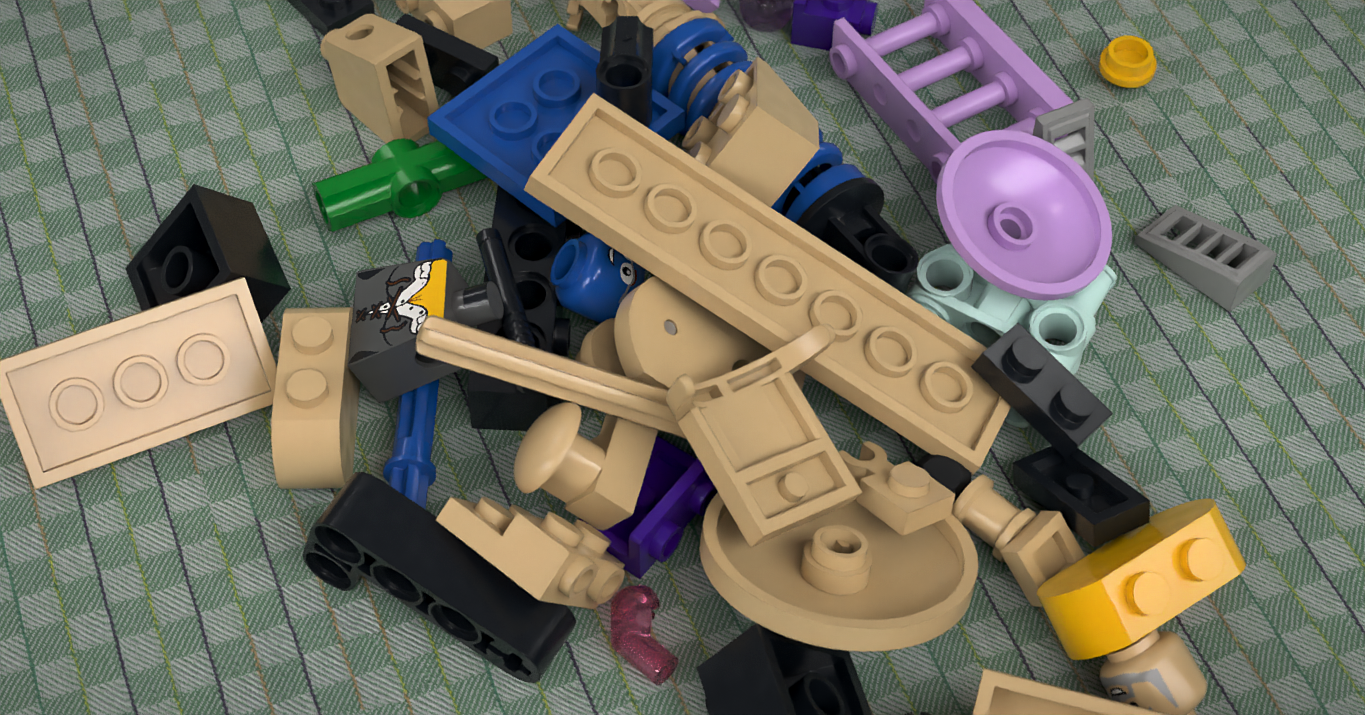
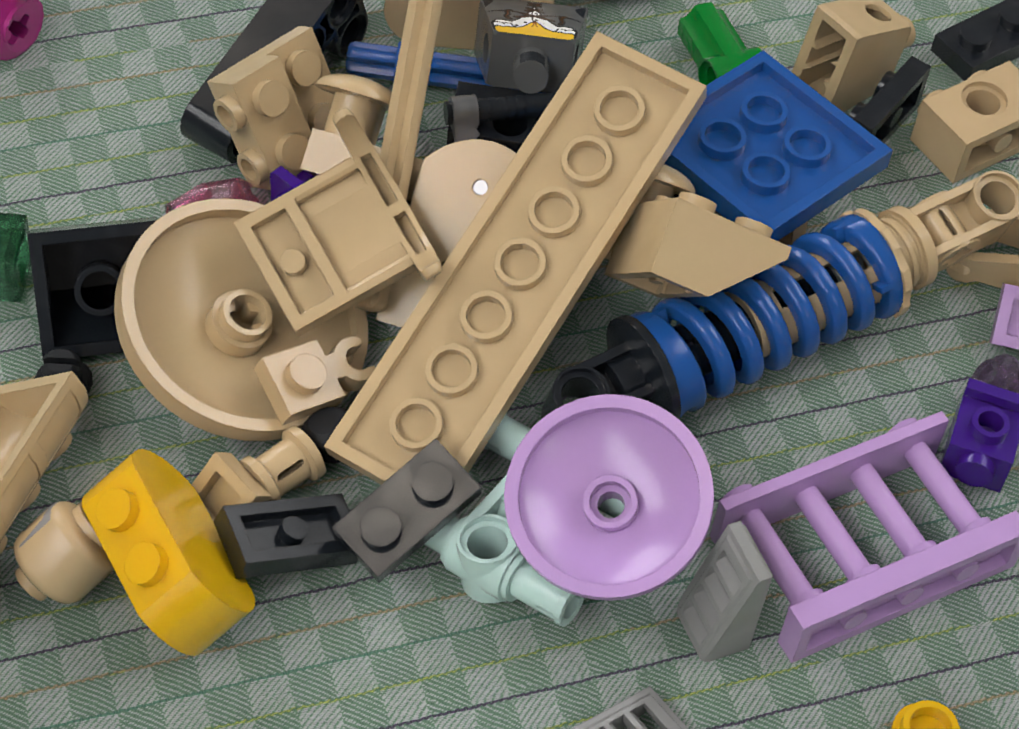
camera: 90 degrees right, 0 degrees up
(627, 67) = (777, 166): black piece -> none

